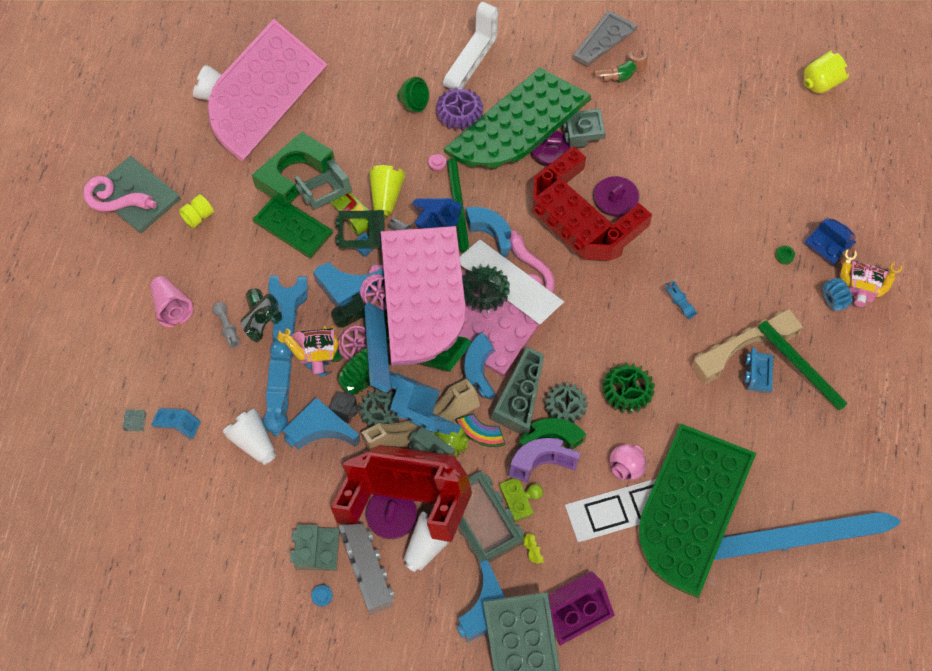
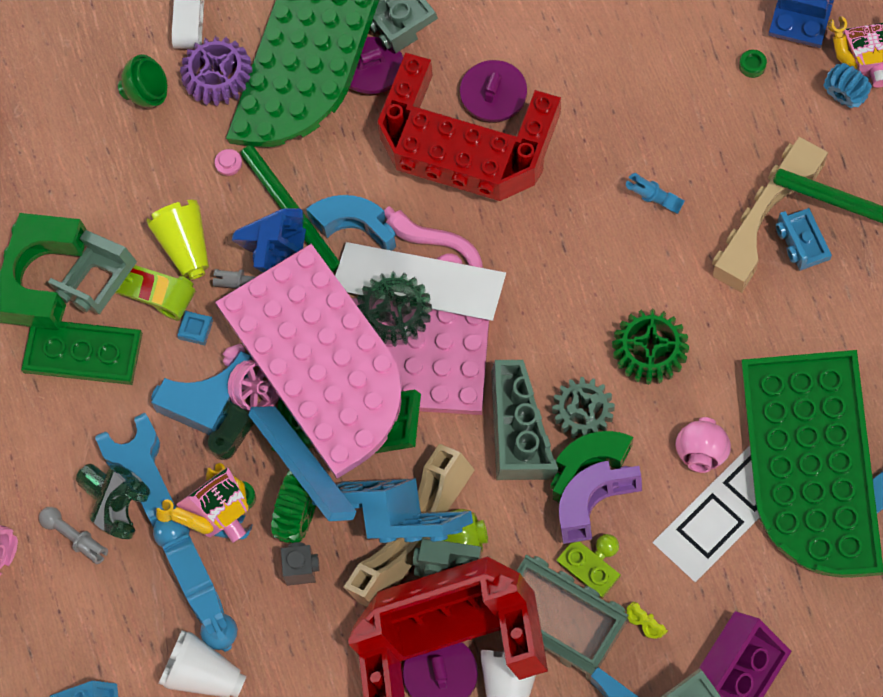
camera: 20 degrees left, 5 degrees up
(317, 423) = (277, 602): dark azure arch -> none
(355, 344) = (264, 472): bright pink wheel -> none
(374, 416) = (342, 553): sand green gear -> none
(376, 226) = (203, 300): dark green window -> none
(475, 362) = (437, 416): dark azure arch -> none
(480, 433) = (494, 504): tile -> none

